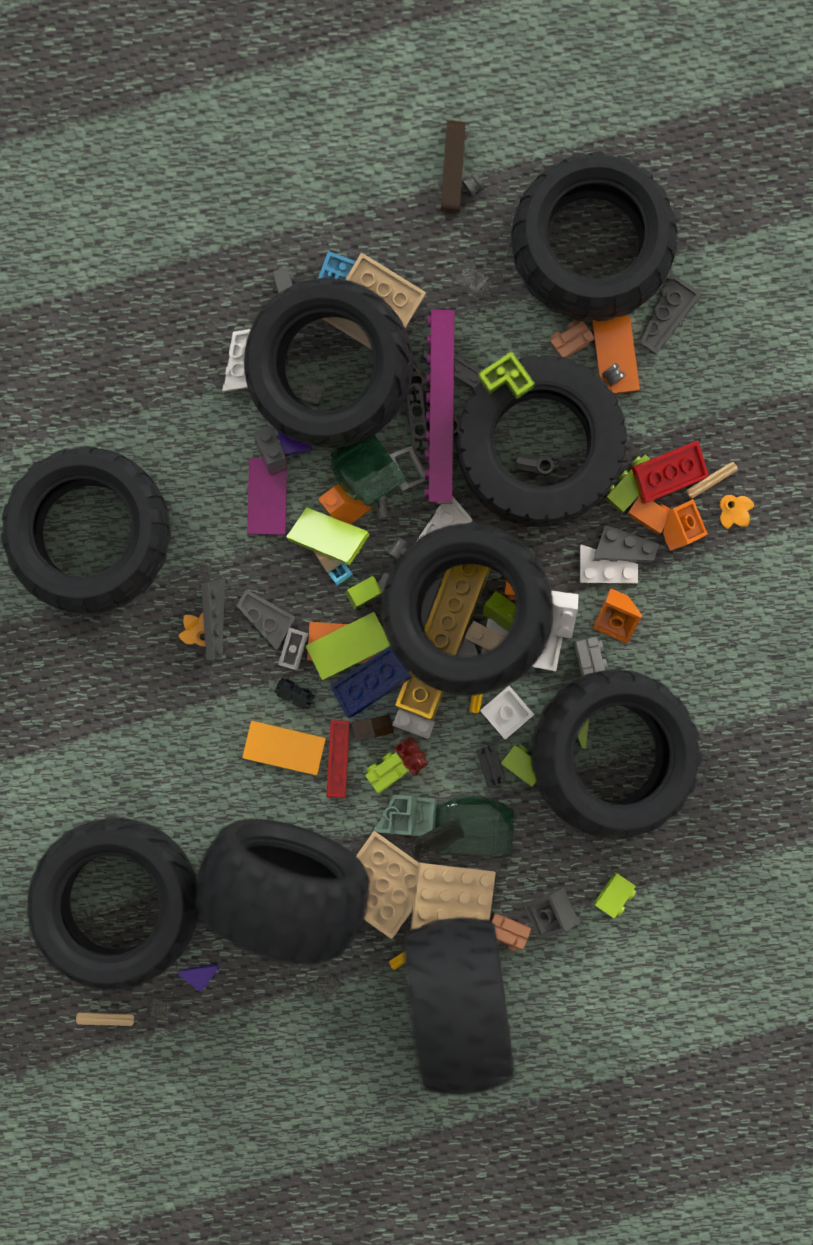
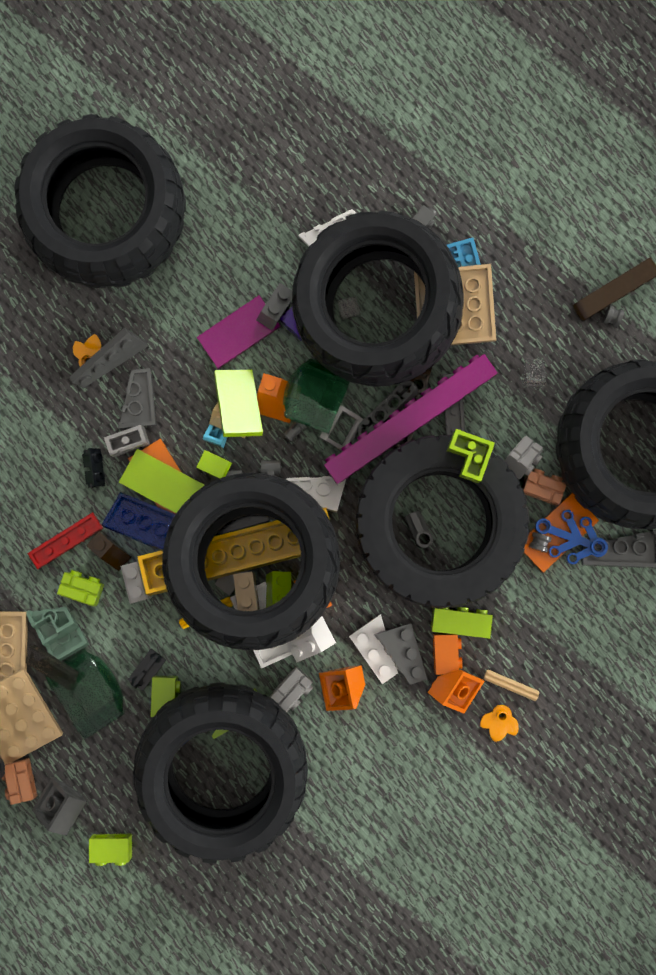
camera: 55 degrees right, 0 degrees up
(284, 748) = (43, 490): light orange tile -> none
(412, 756) = (108, 599): clear red hips -> none
(507, 712) = (197, 653): white plate -> none
(536, 338) = (524, 457): none -> light grey brick
(630, 345) = (574, 538): none -> blue plant
(670, 472) = (492, 646): red tile -> none

